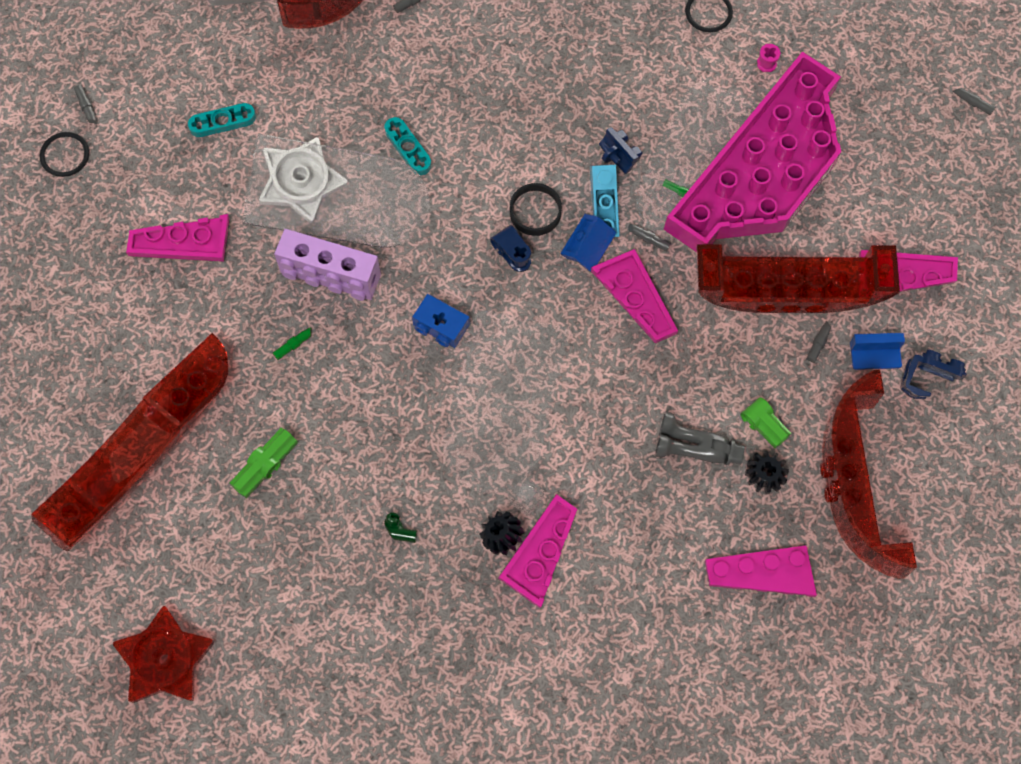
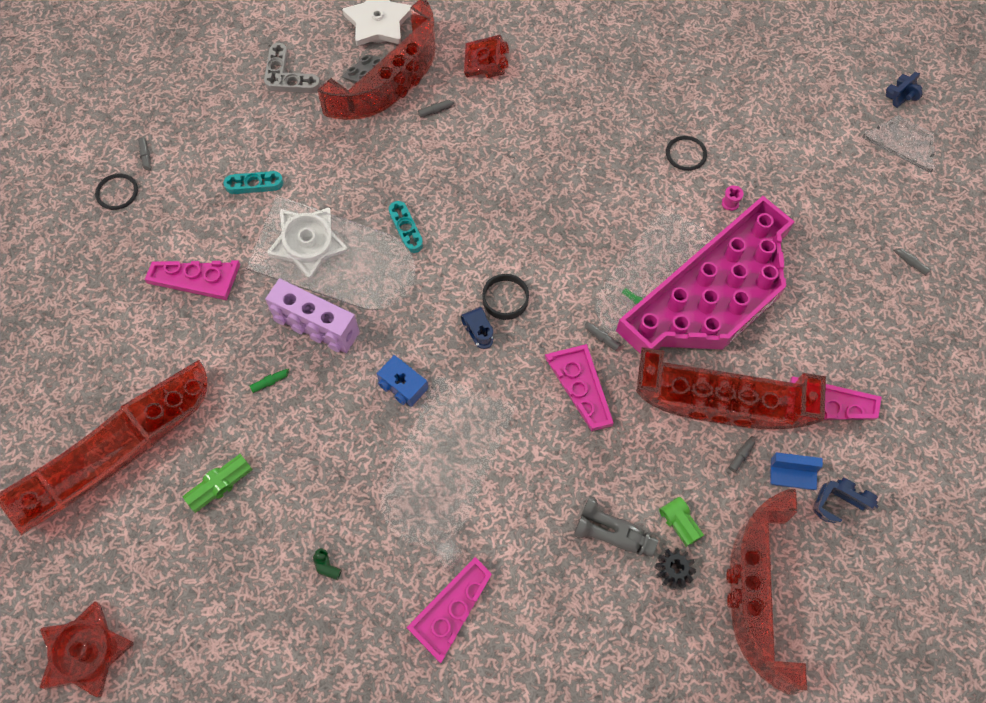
camera: 10 degrees right, 5 degrees down
(502, 533) = (417, 585): black gear -> none
(588, 241) = (547, 331): blue panel -> none
(604, 194) = (567, 298): medium azure slope -> none
(617, 150) = (586, 256): dark blue hips -> none
(771, 571) = (663, 665): dark pink wing -> none

